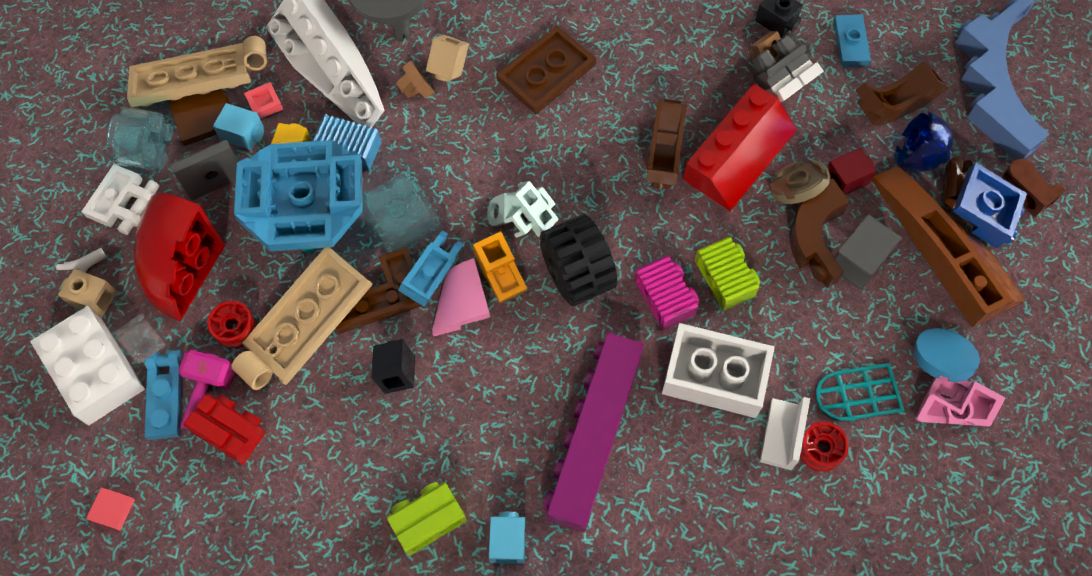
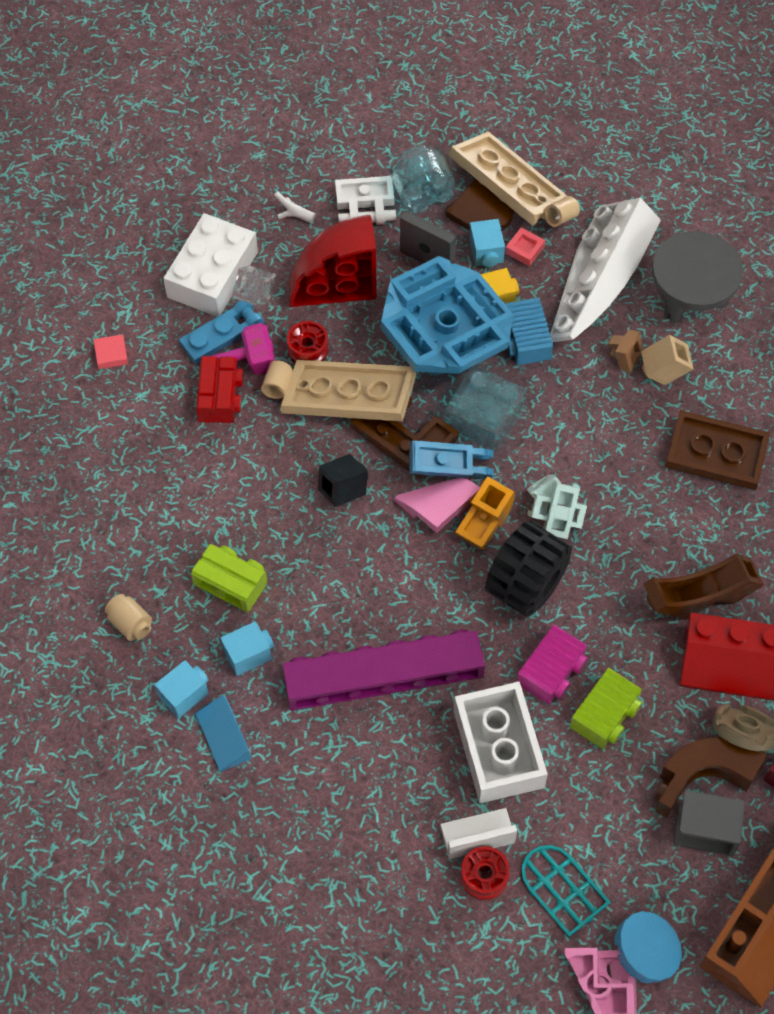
camera: 60 degrees right, 5 degrees down
(87, 290) = (270, 228): tan brick -> none

